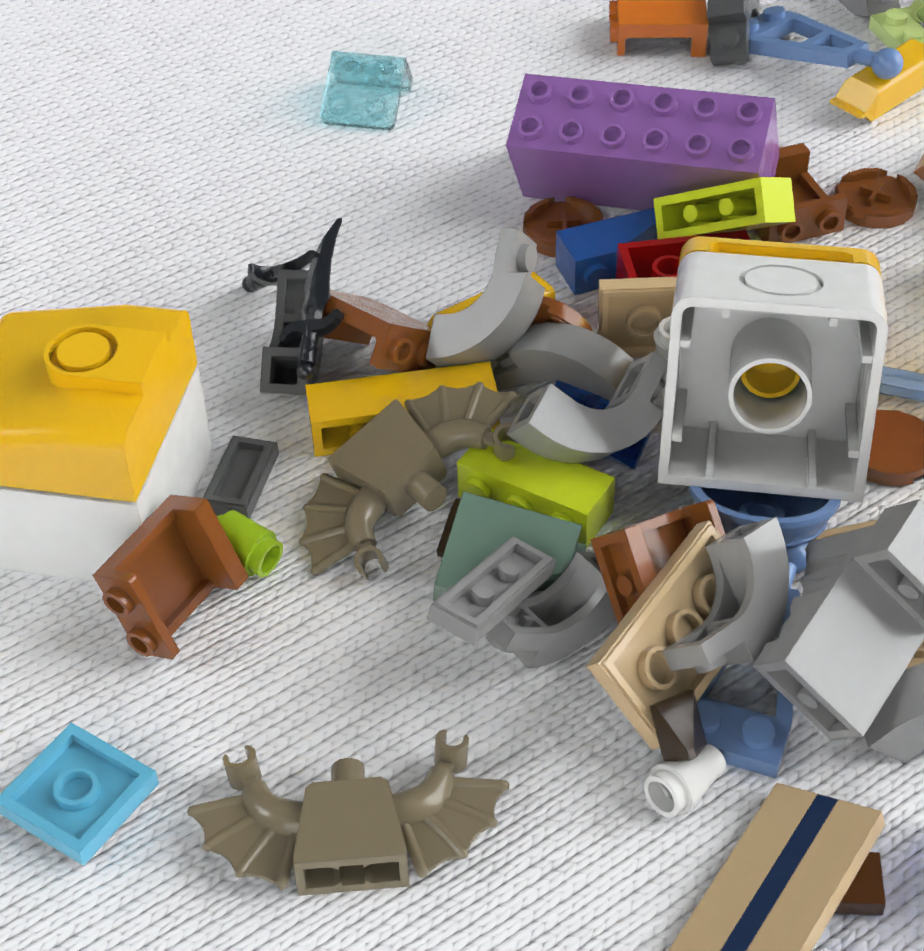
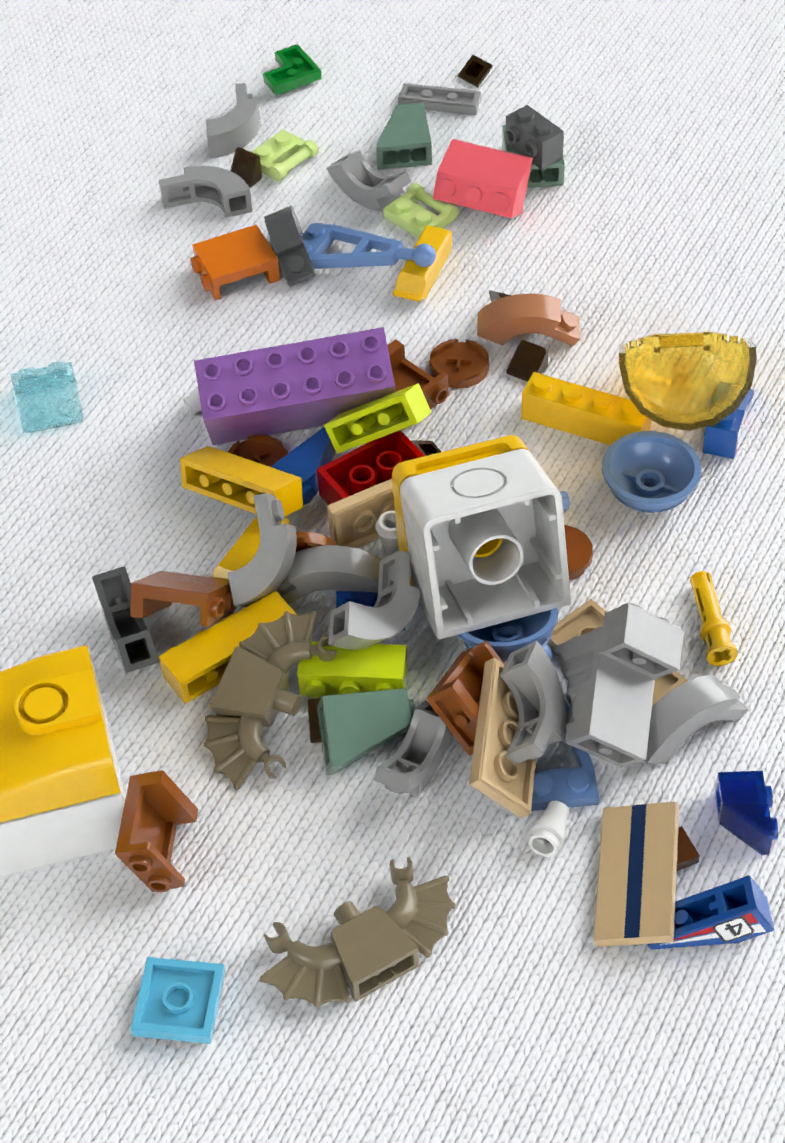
camera: 25 degrees left, 5 degrees up
(241, 475) = (144, 740): dark grey tile -> none
(252, 542) = (190, 783): lime brick -> none
(264, 276) = (80, 578): black piece -> none
(316, 296) = (140, 592): black piece -> none
(491, 590) = (381, 757): light grey tile -> none
(558, 248) = (238, 480): none -> yellow brick
(679, 727) = (535, 799): dark brown slope -> none

